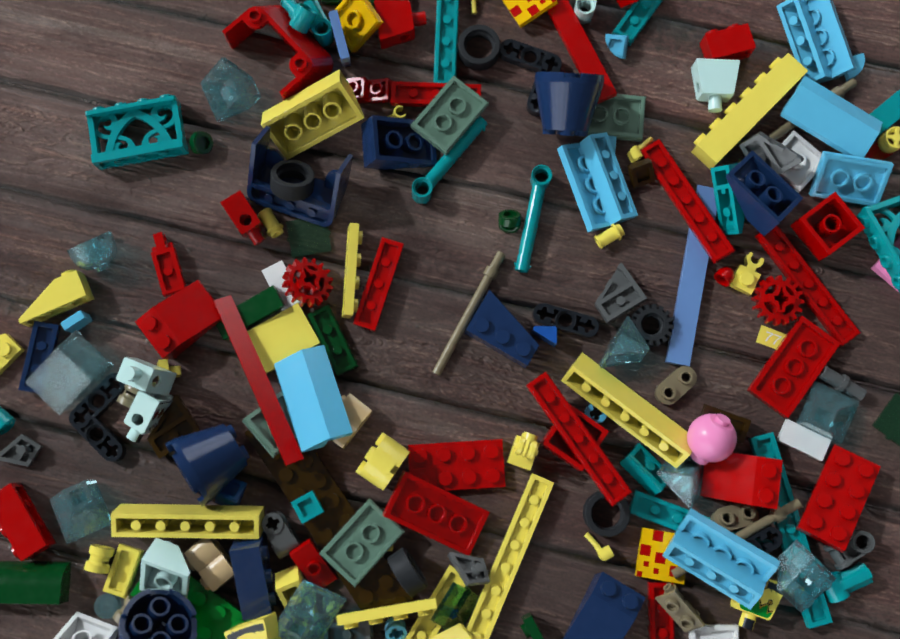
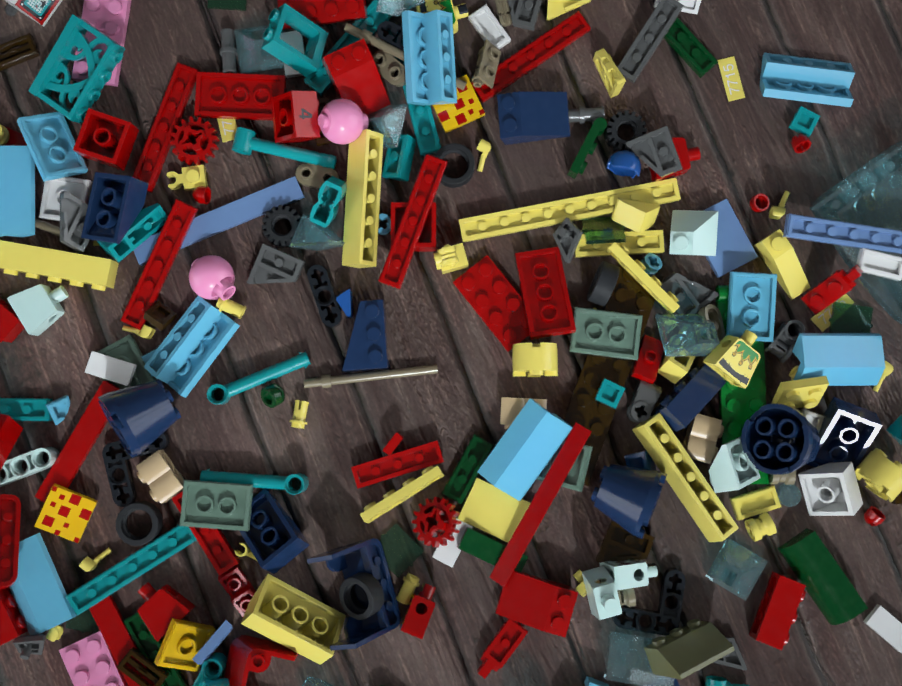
camera: 125 degrees left, 5 degrees up
(46, 416) = (687, 649): none -> olive slope
(398, 292) = (393, 443): none -> red tile
(477, 232) = (299, 414): none -> light yellow pin
(505, 88) = (161, 476): none -> tan brick
(623, 105) = (110, 368): none -> white tile
(645, 236) = (212, 278): none -> bright pink brick
(646, 377) = (329, 196): none -> teal brick
(742, 400) = (295, 116): none -> red brick
(747, 344) = (246, 141): none -> teal piece
(786, 447) = (303, 63): none -> teal window

